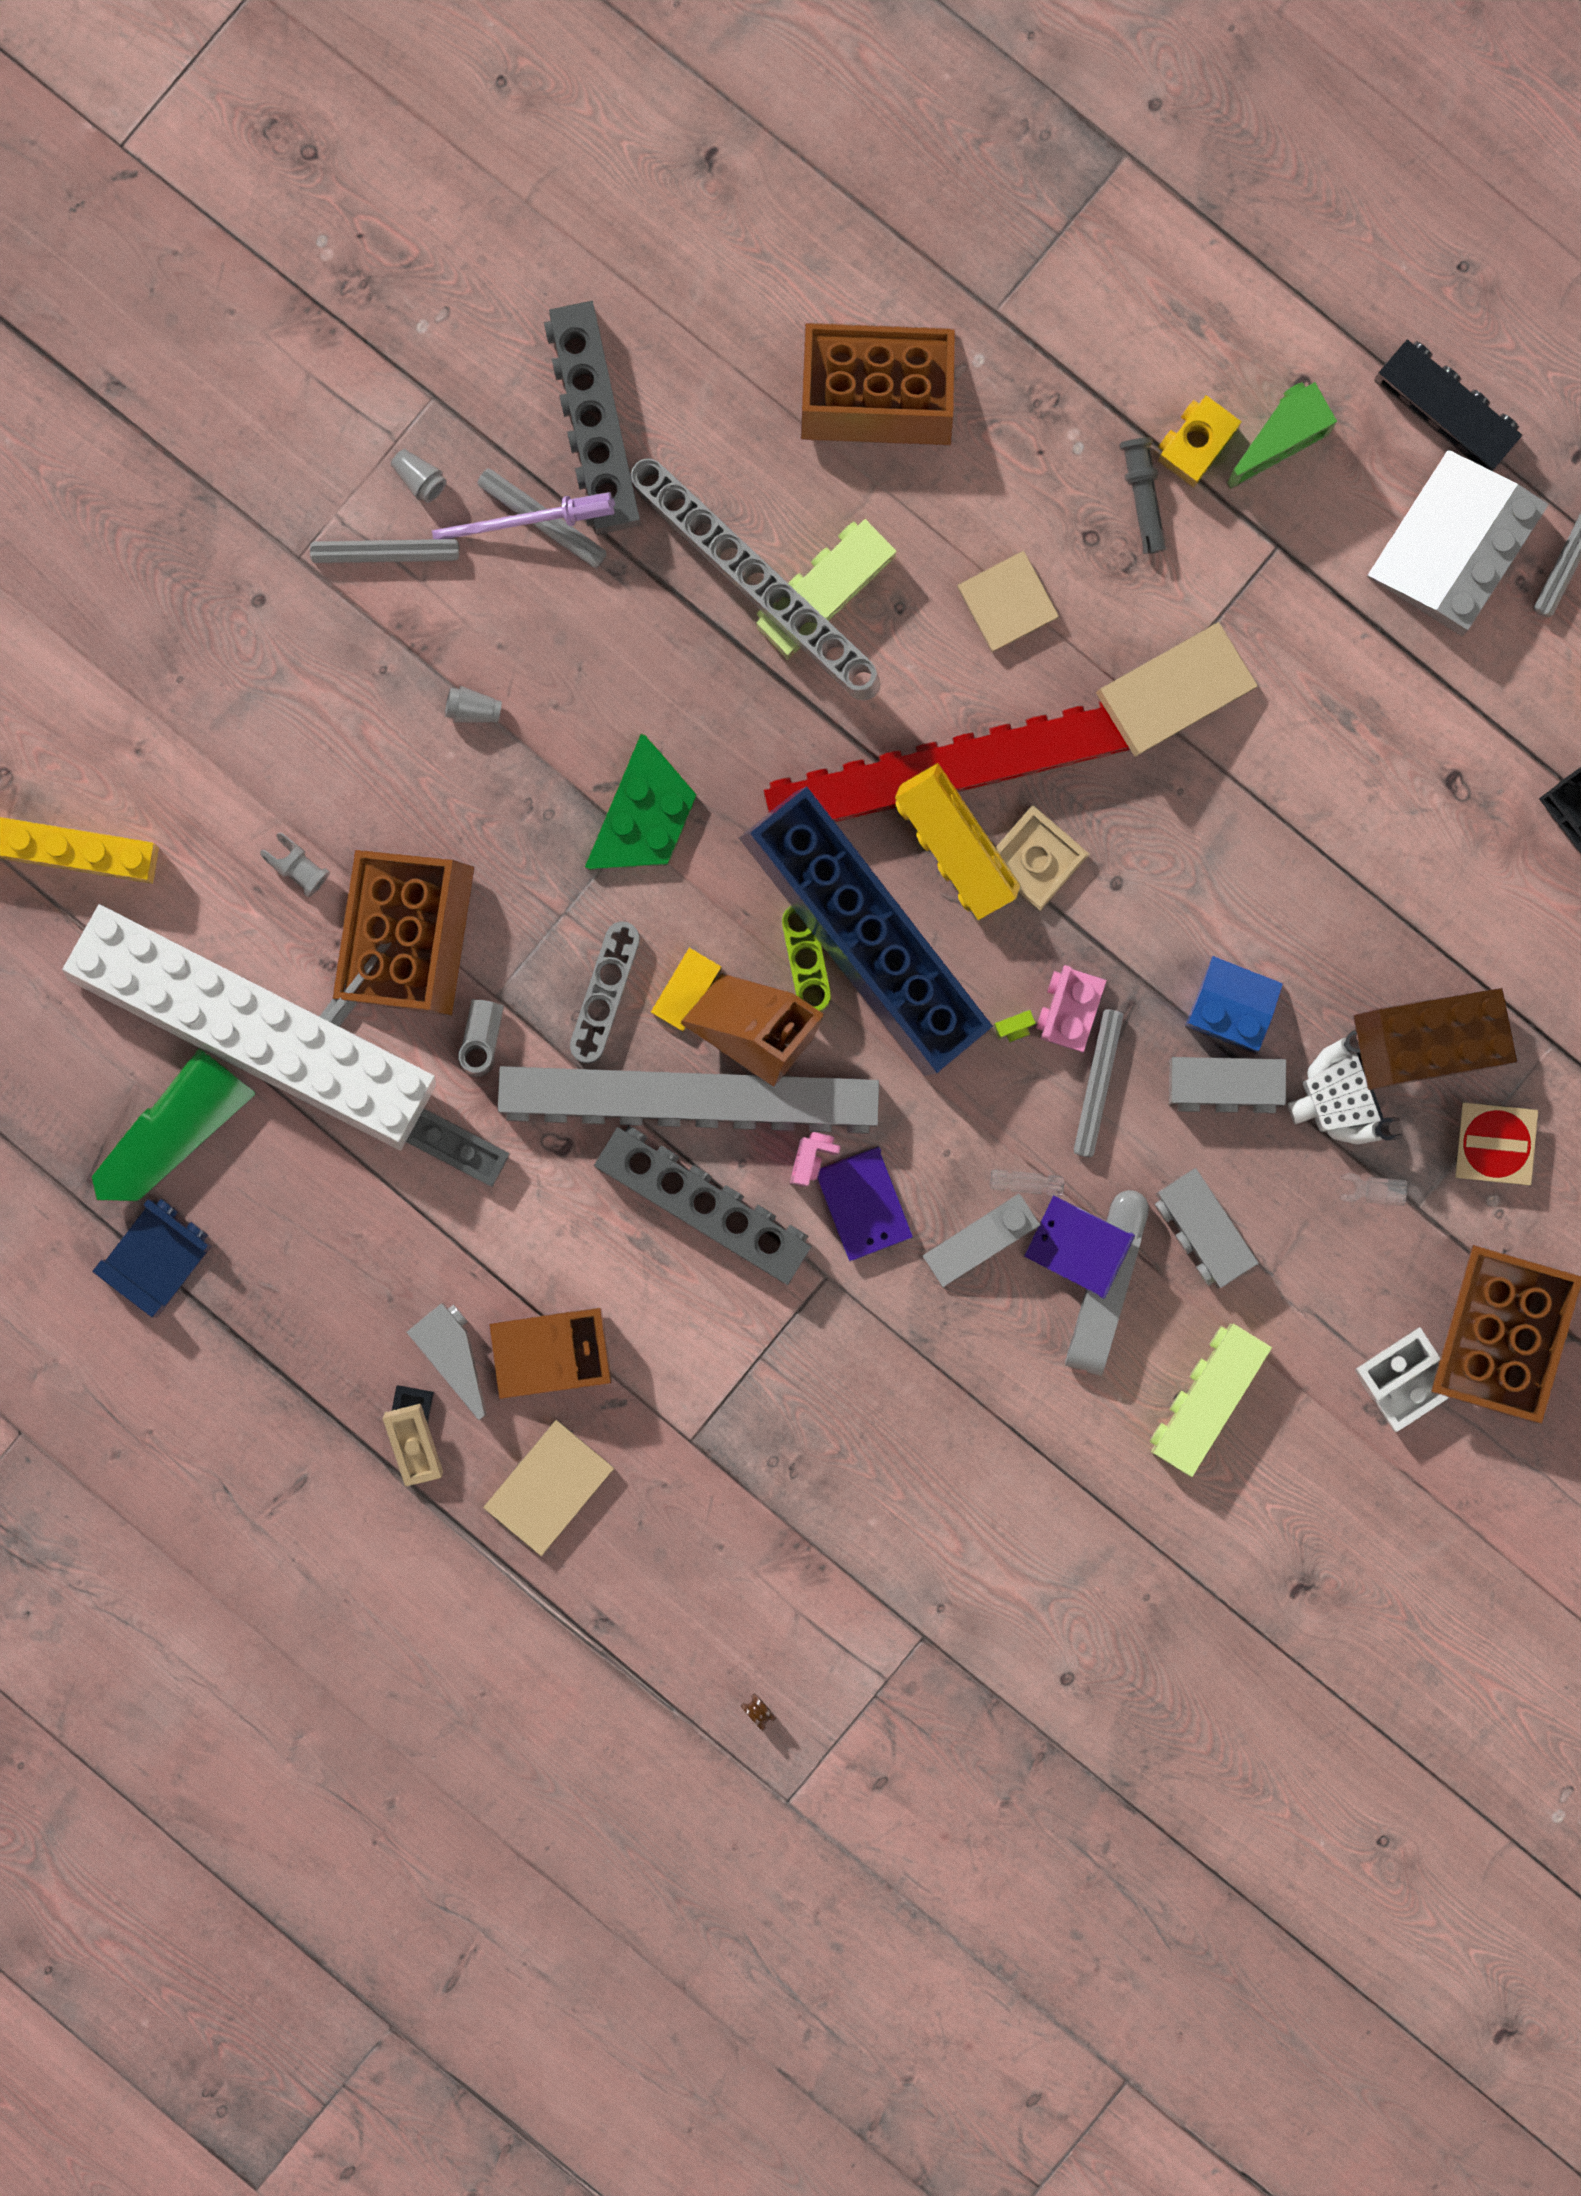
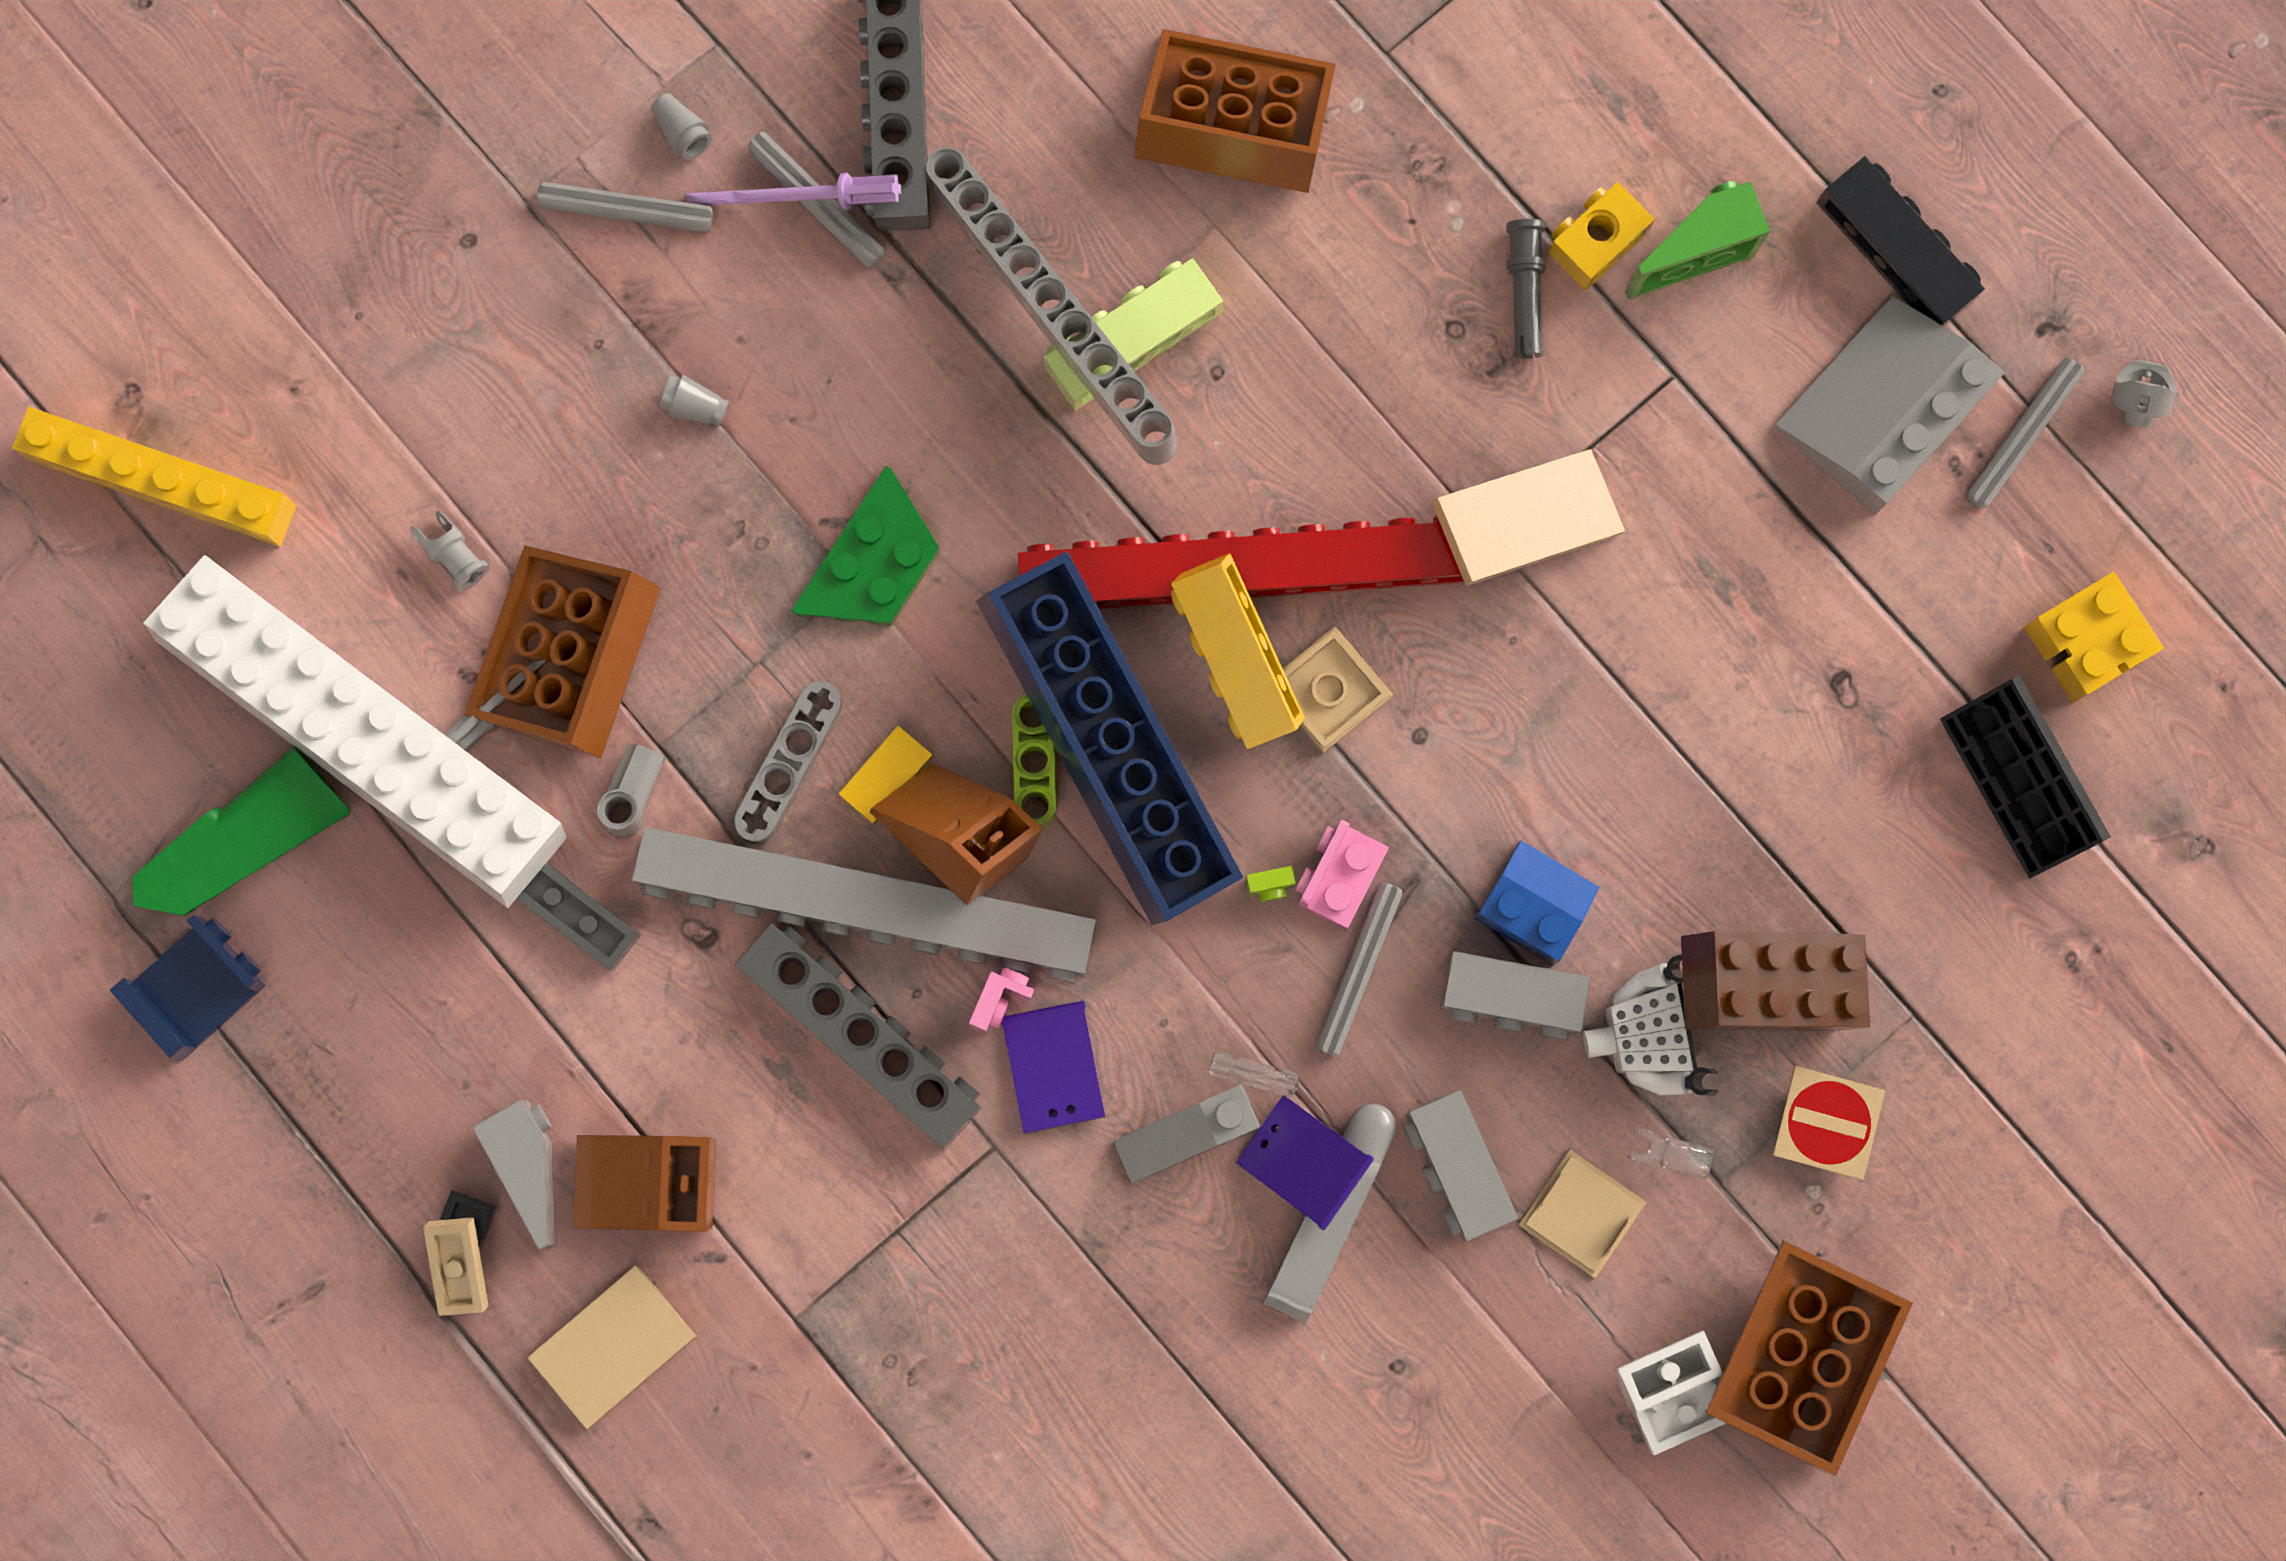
camera: 10 degrees right, 5 degrees down
(1007, 601) = (1345, 385): tan tile -> none
(1210, 1400) = (1433, 1375): yellowish green brick -> none
(1309, 1250) = (1582, 1213): none -> tan piece

